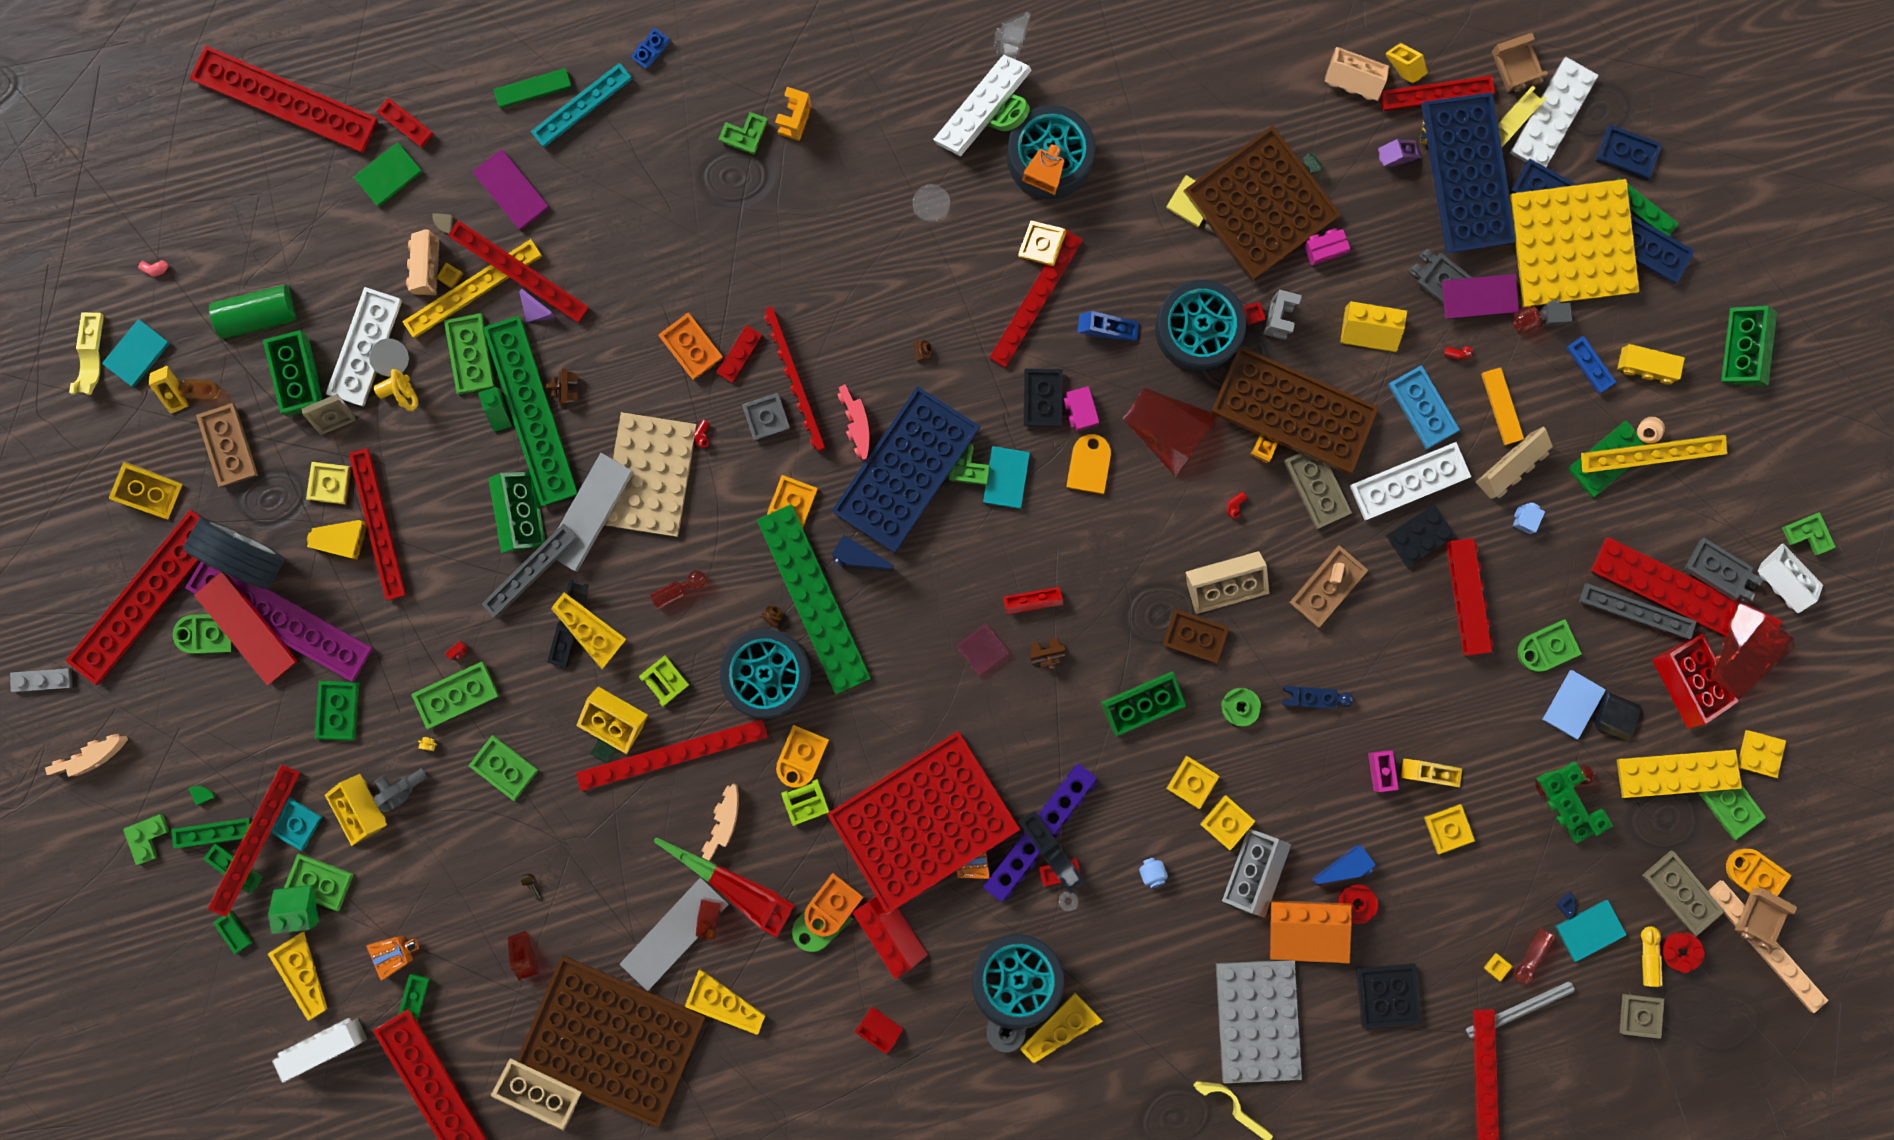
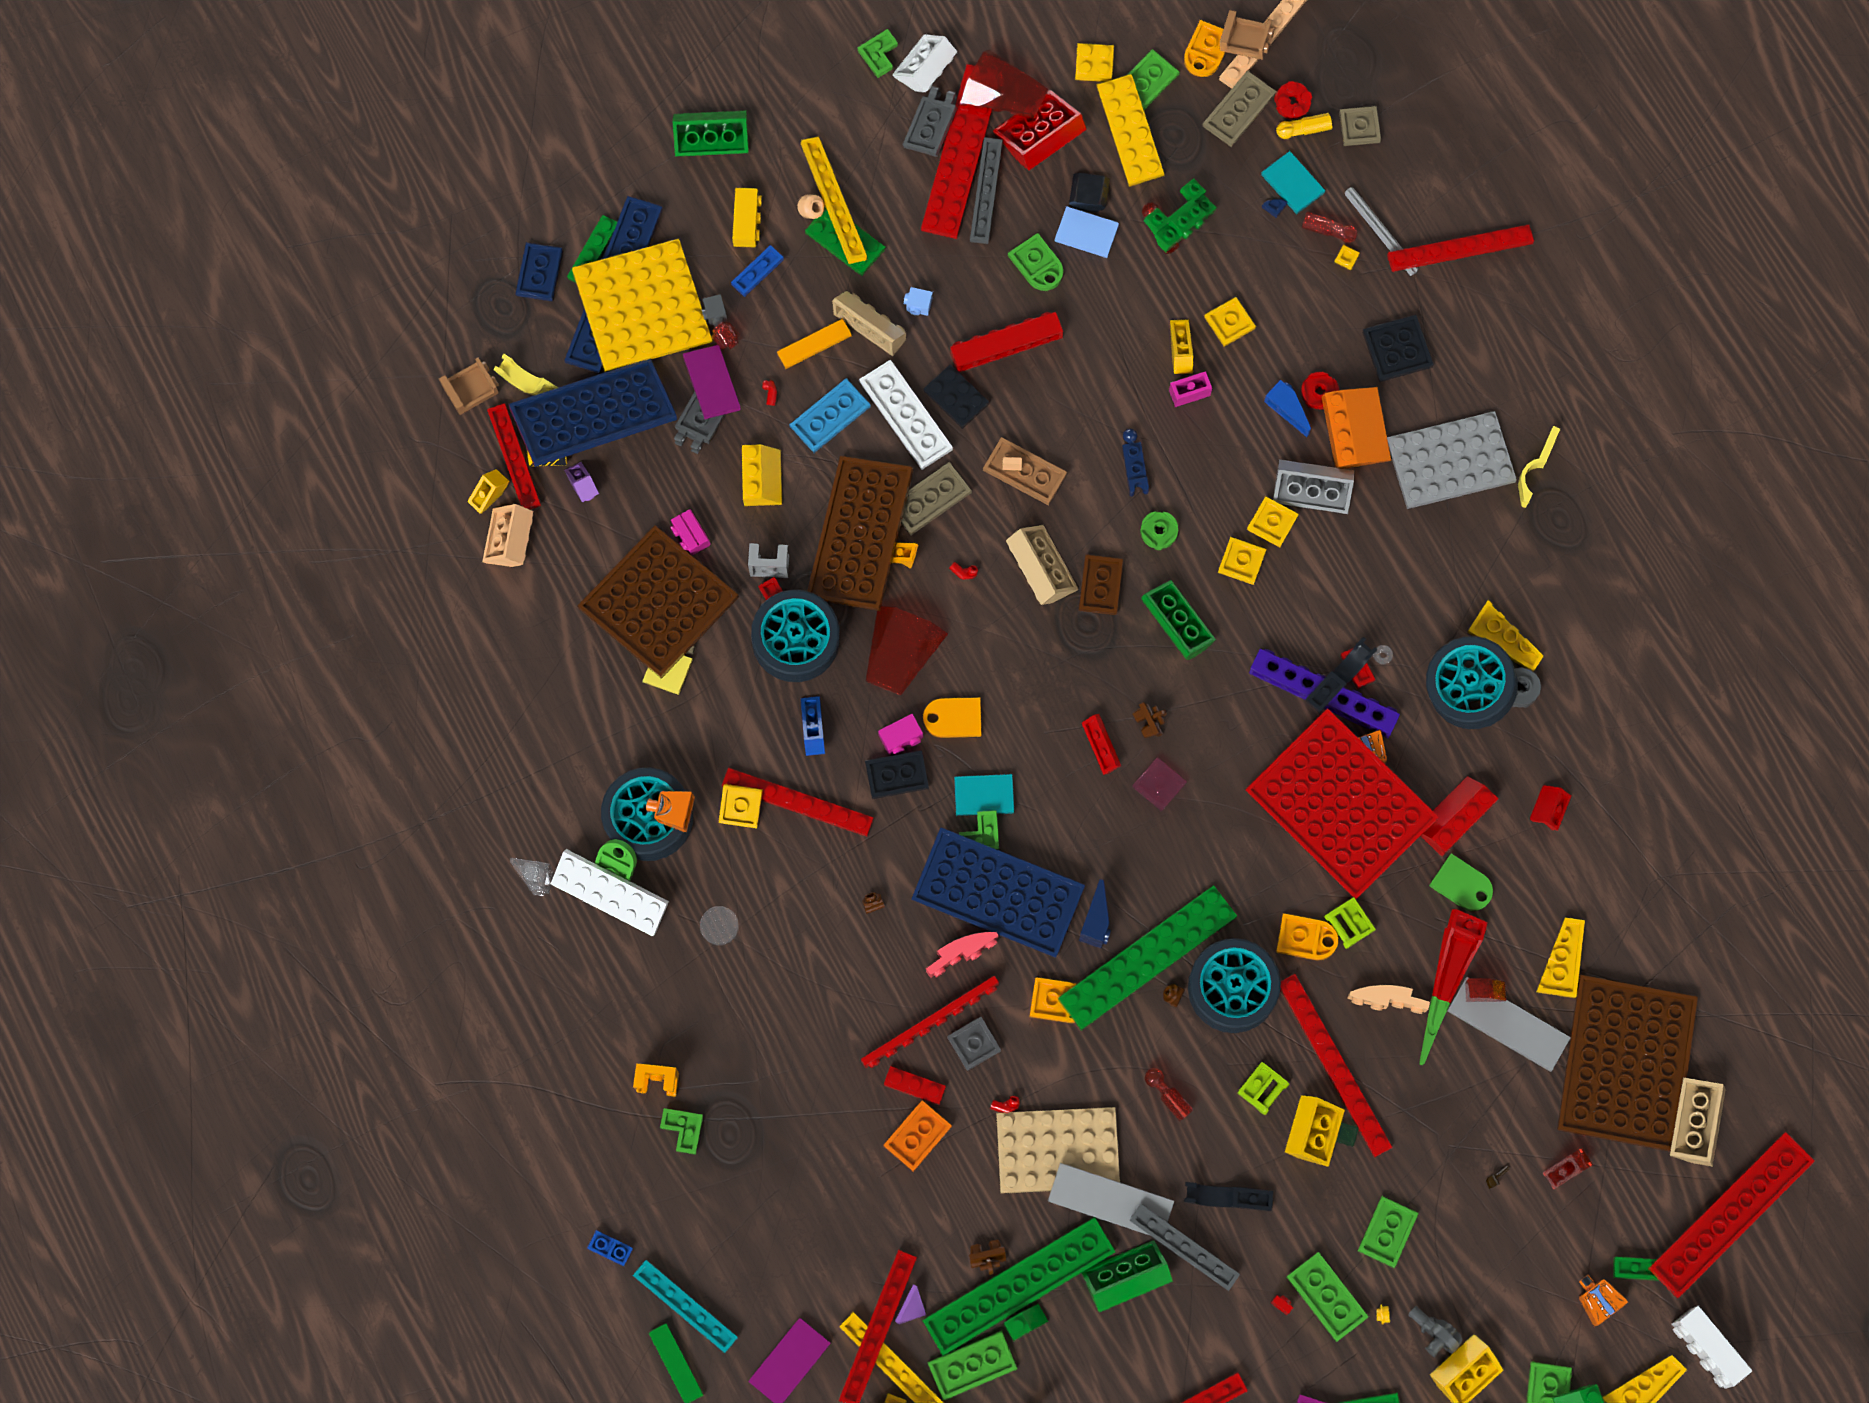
camera: 95 degrees left, 10 degrees down
(590, 631) = (1231, 1171): yellow wing -> none
(832, 905) = (1442, 875): orange tile -> none
(1153, 873) = (1337, 580): light blue head -> none
(1313, 163) = (607, 560): clear green tile -> none
(1555, 114) = (526, 348): white plate -> none

